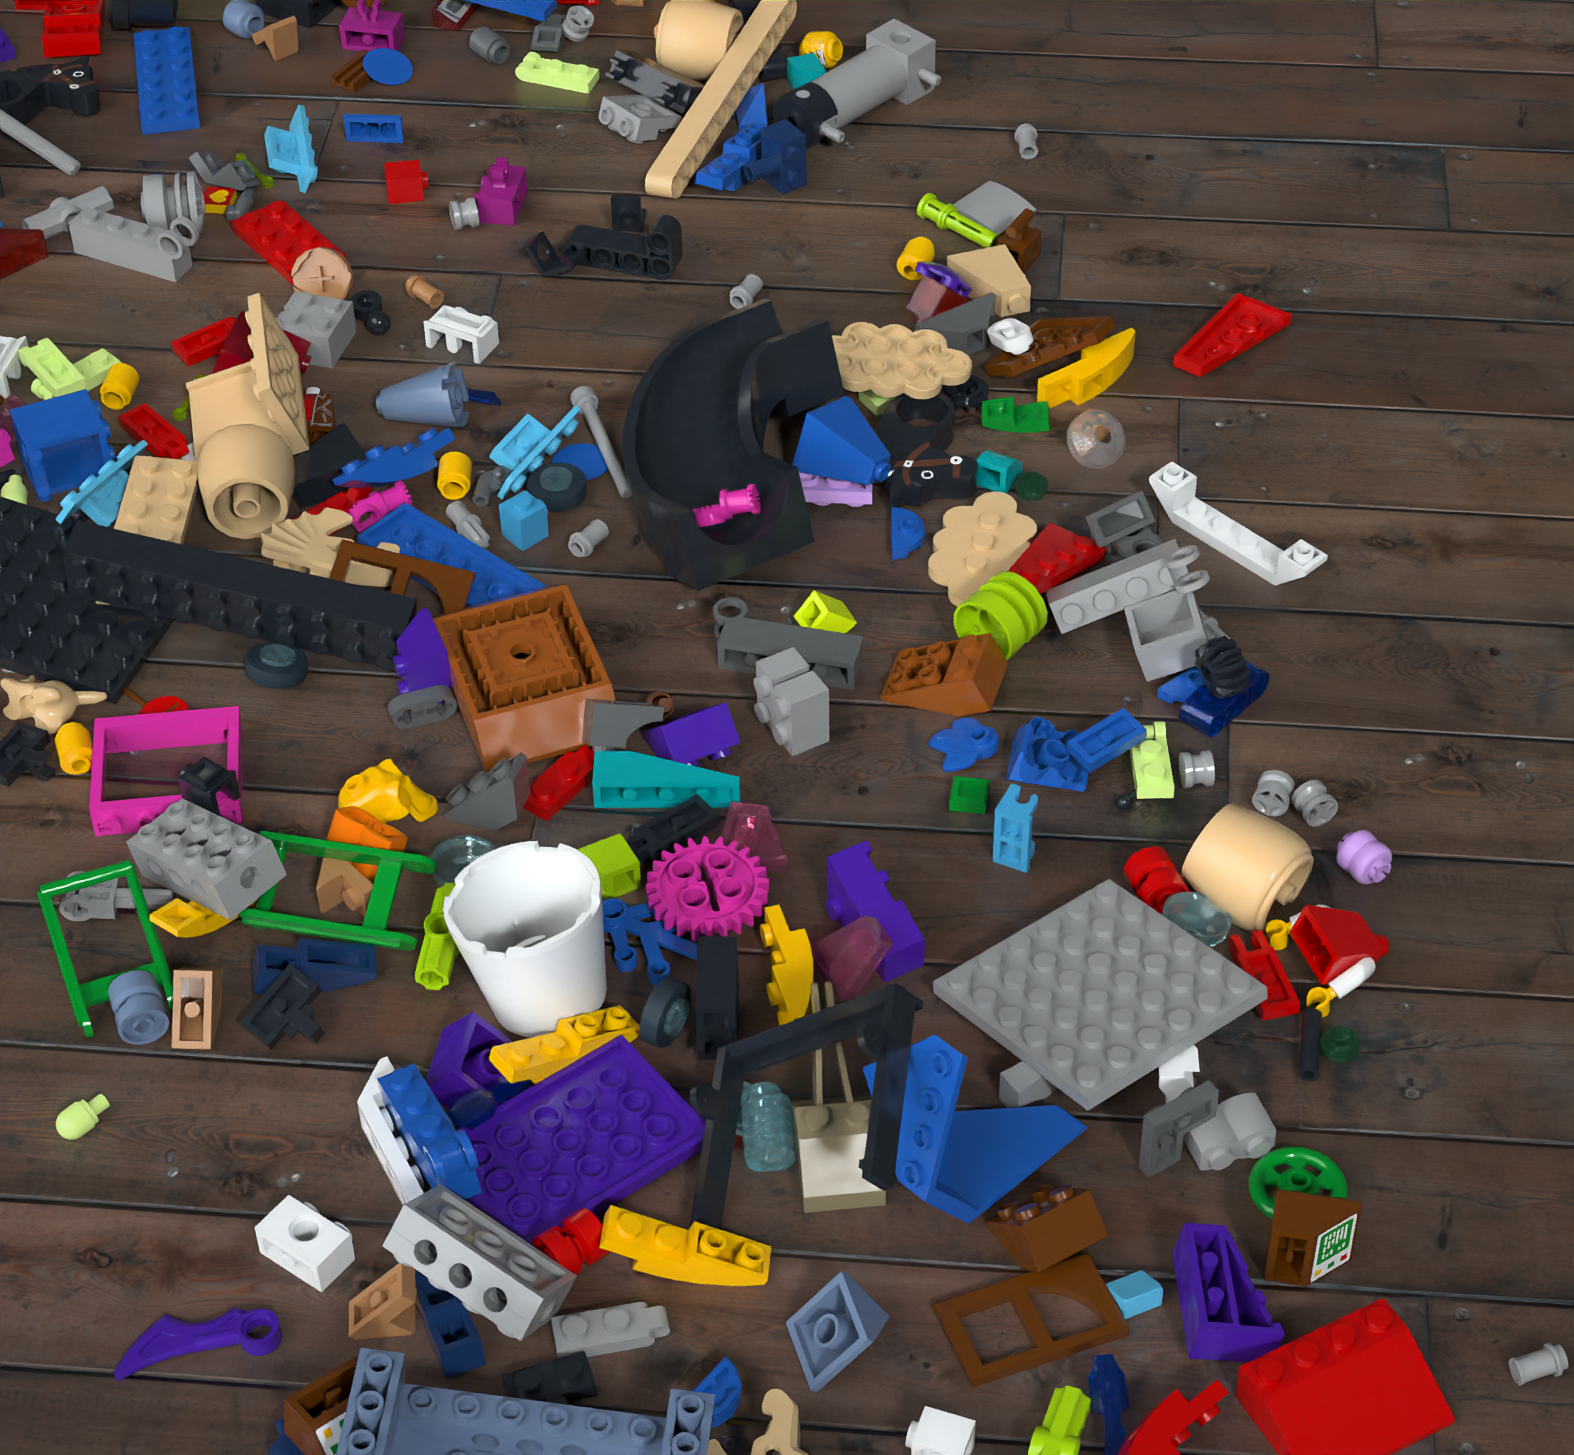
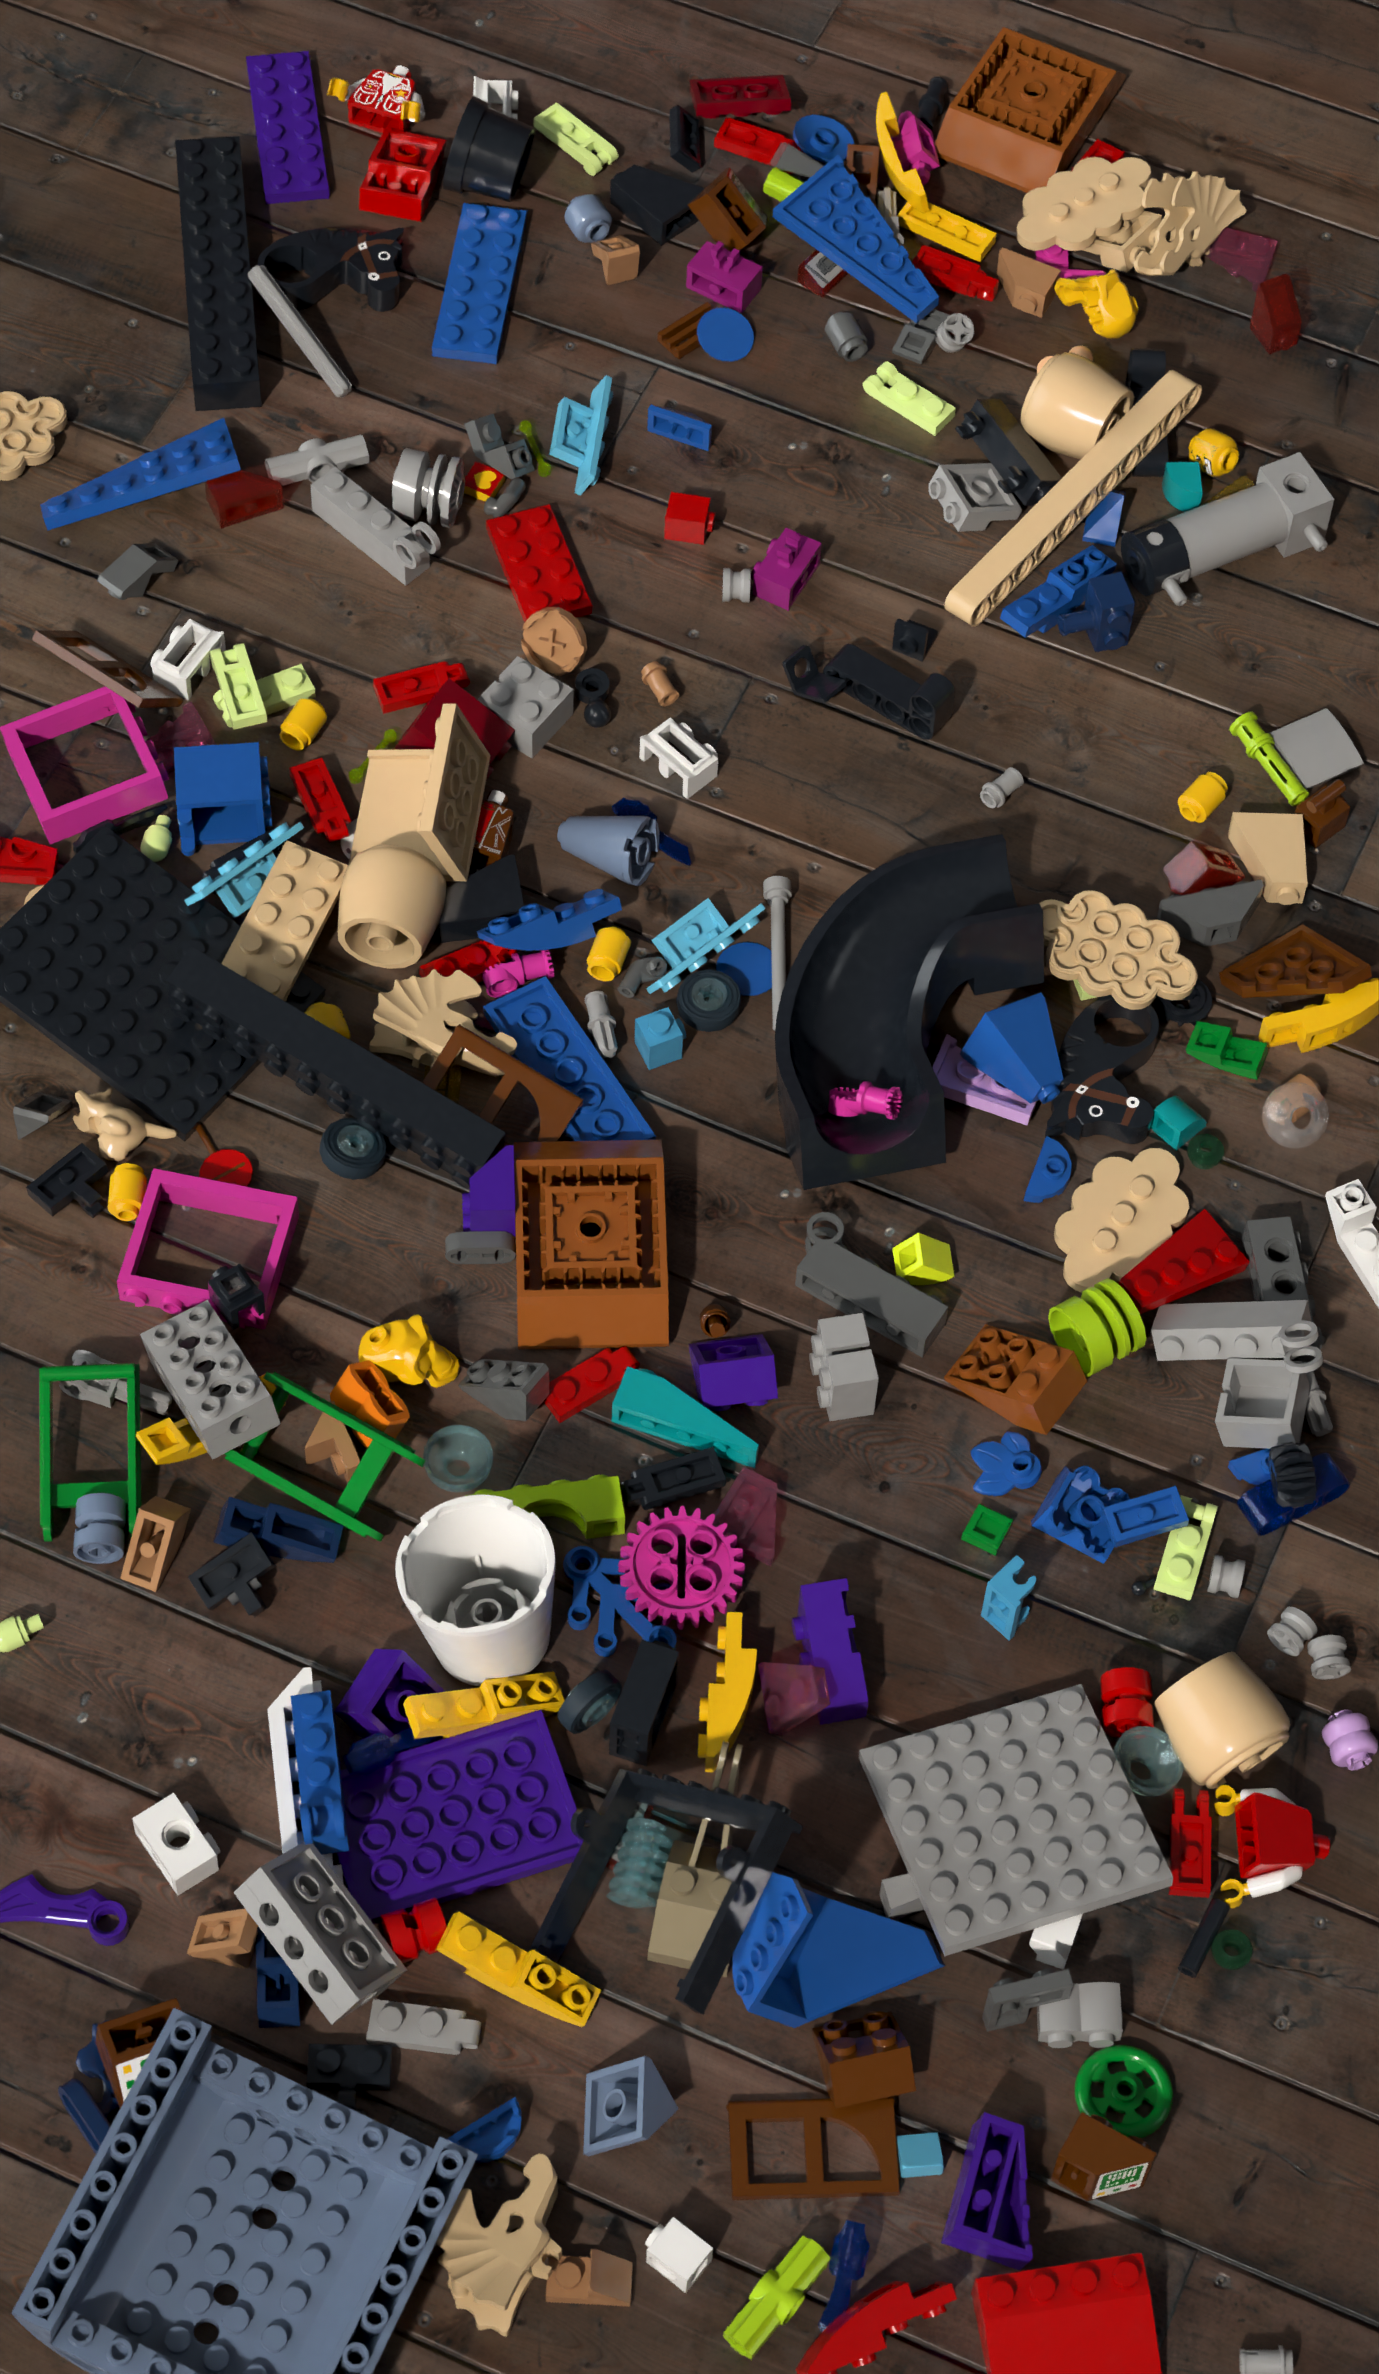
camera: 15 degrees right, 15 degrees up
(438, 946) = (426, 1497): lime piece -> none
(582, 542) = (711, 1083): light grey pin -> none
(611, 722) = (662, 1333): dark grey arch -> none
(944, 276) = (1222, 842): dark purple dish -> none
(1010, 335) = (1258, 946): white plate -> none
(1120, 518) = (1268, 1240): dark grey slope -> none

